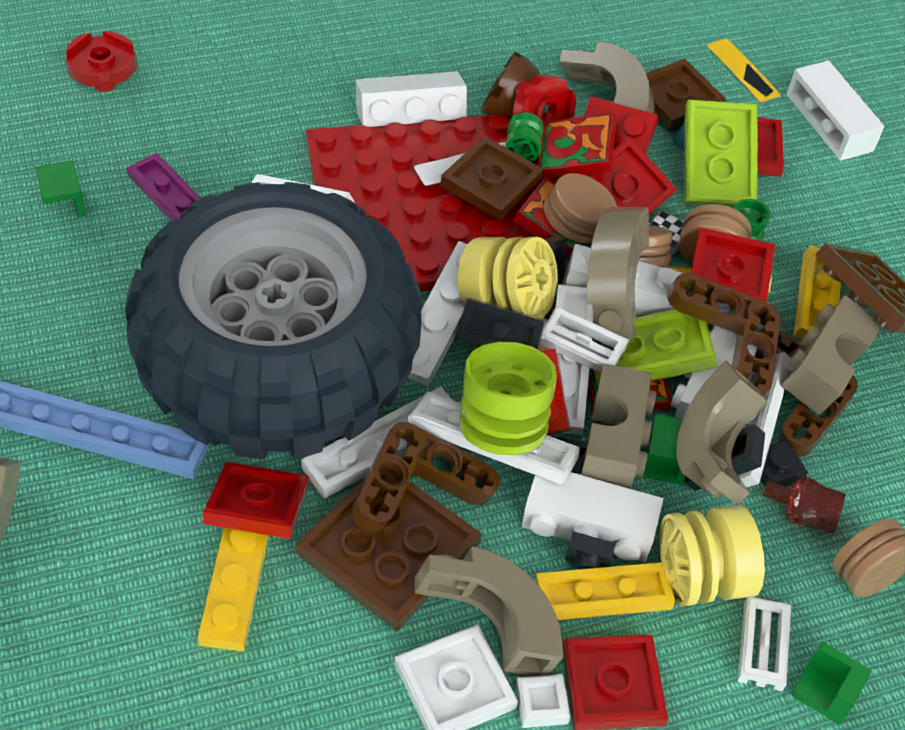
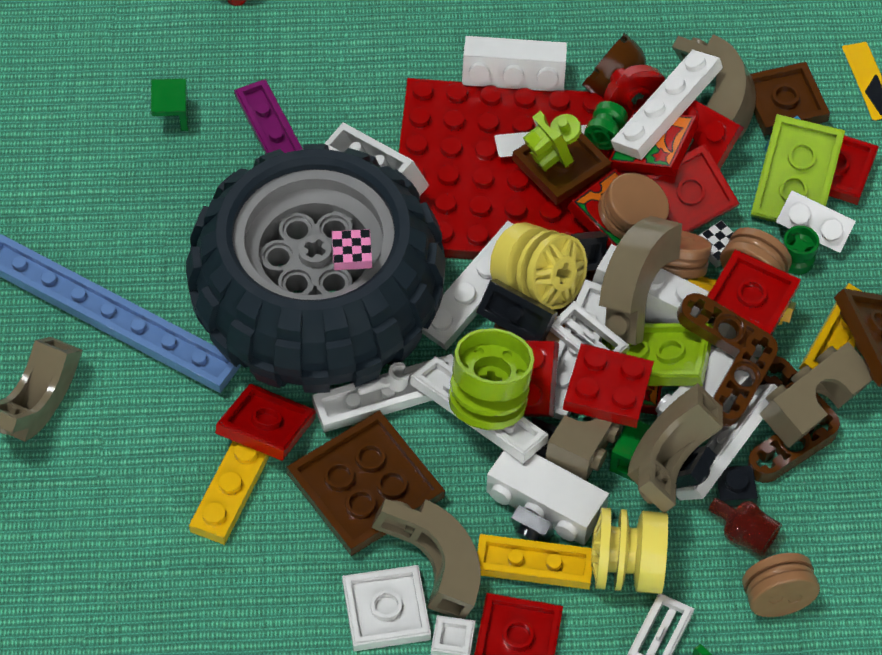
camera: 20 degrees right, 5 degrees up
(326, 280) = (352, 249): none -> bright pink tile
(381, 428) = (391, 381): none -> white hand
(418, 461) = (408, 416): reddish brown beam -> none
(485, 152) = (550, 143): none -> lime hips
(579, 108) = (666, 104): none -> white plate
(627, 383) = (608, 385): none -> red plate
(739, 185) = (828, 224): none -> white plate

